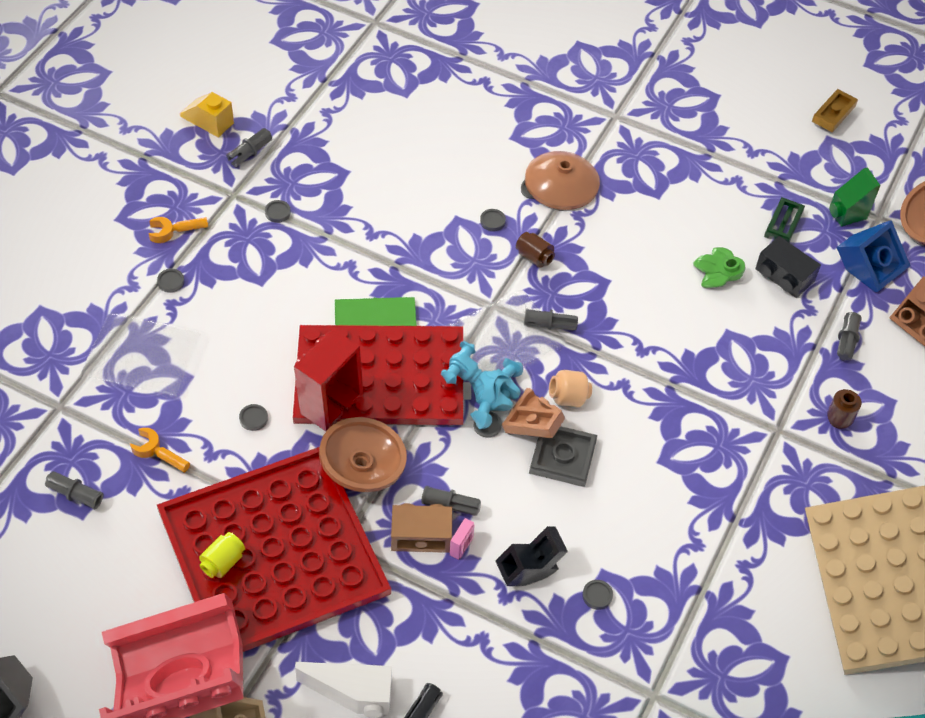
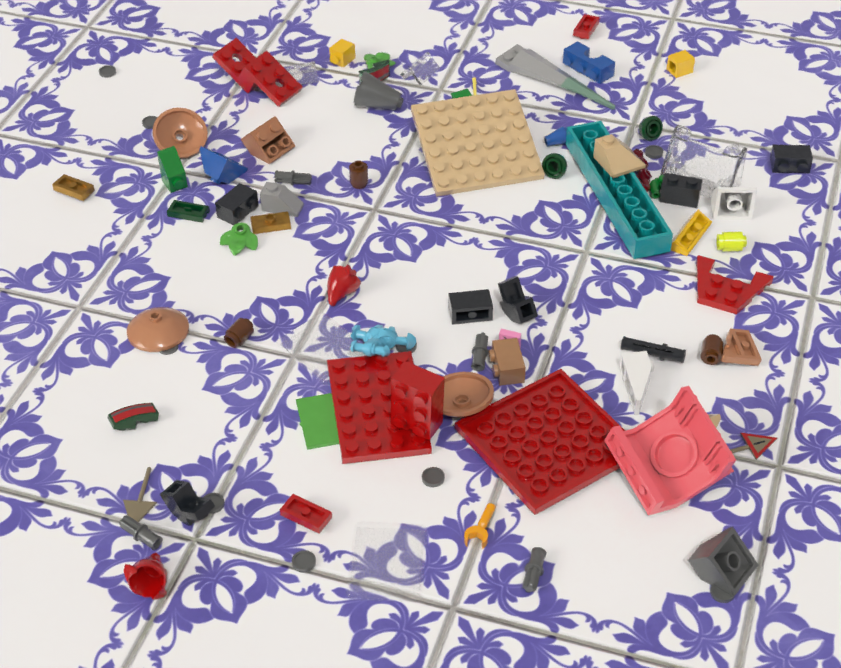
camera: 95 degrees left, 10 degrees down
(167, 227) = (244, 573): light orange piece -> none
(188, 147) = (147, 577): none -> red hat
(210, 113) = (97, 571): yellow slope -> none
(221, 555) = (571, 452): neon yellow brick -> none
(229, 284) = (306, 513): none -> red plate
(272, 180) = (185, 503): none -> black brick
(292, 150) = (139, 508): none -> dark tan piece
(418, 148) = (127, 416): none -> slope
(492, 219) = (205, 365): dark grey piece -> none
(533, 417) = (401, 313): nougat wing -> none
(540, 502) = (470, 306): none -> black brick
(550, 319) = (306, 318): dark grey axle -> none
(564, 456) = (422, 303): dark grey tile -> none
(570, 388) = (370, 300): light nougat head -> none
(597, 594) = (527, 279): dark grey piece -> none
(607, 360) = (341, 282): none -> red hat
(753, 304) = (270, 222): none -> pearl gold plate
(792, 314) = (279, 198): none -> light grey slope
(865, 690) = (554, 165): none -> dark green brick

